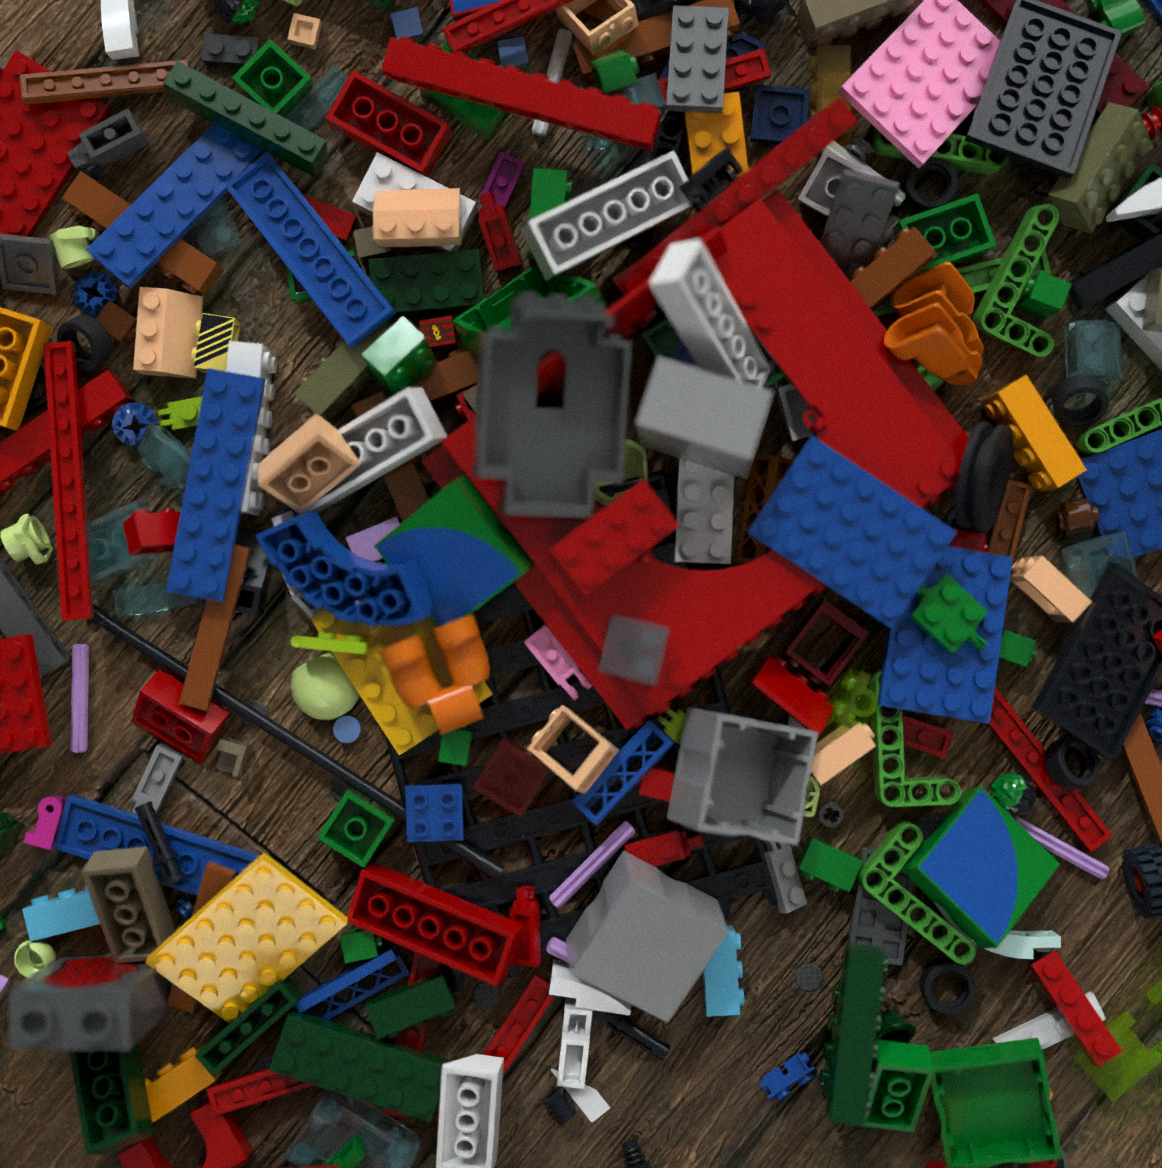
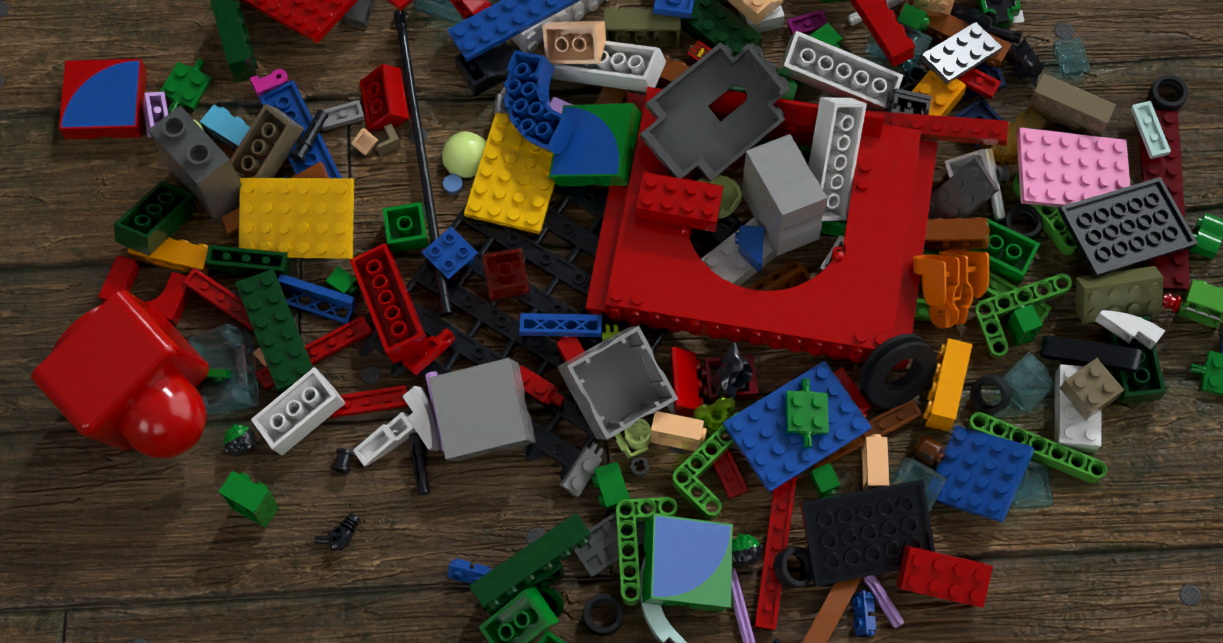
camera: 50 degrees right, 20 degrees down
(79, 698) = (349, 47): lavender axle -> none
(149, 599) = (434, 40): clear light blue tile -> none
(213, 637) = (443, 74): dark orange tile -> none
(213, 780) = (364, 141): none -> light nougat plate
(327, 642) = (492, 126): lime hinge -> none
(399, 357) = (672, 38): green brick -> none
(412, 1005) = (332, 333): dark green brick -> none
(418, 685) = (516, 175): orange piece -> none
(456, 746) = (496, 234): green brick -> none
(498, 233) = (779, 40): red hinge -> none
(555, 659) = (588, 246): bright pink hinge -> none
(588, 1100) = (358, 477): white sticker -> none
(592, 864) = (487, 357): lavender axle -> none
(594, 763) = (549, 303): light nougat window -> none
(633, 649) = (632, 263): clear light blue slope -> none
(714, 495) = (750, 245): none -> blue slope
(721, 977) = (497, 481): medium azure brick -> none
(832, 646) = (732, 374): none -> black hair
(851, 532) = (799, 318): blue plate -> none

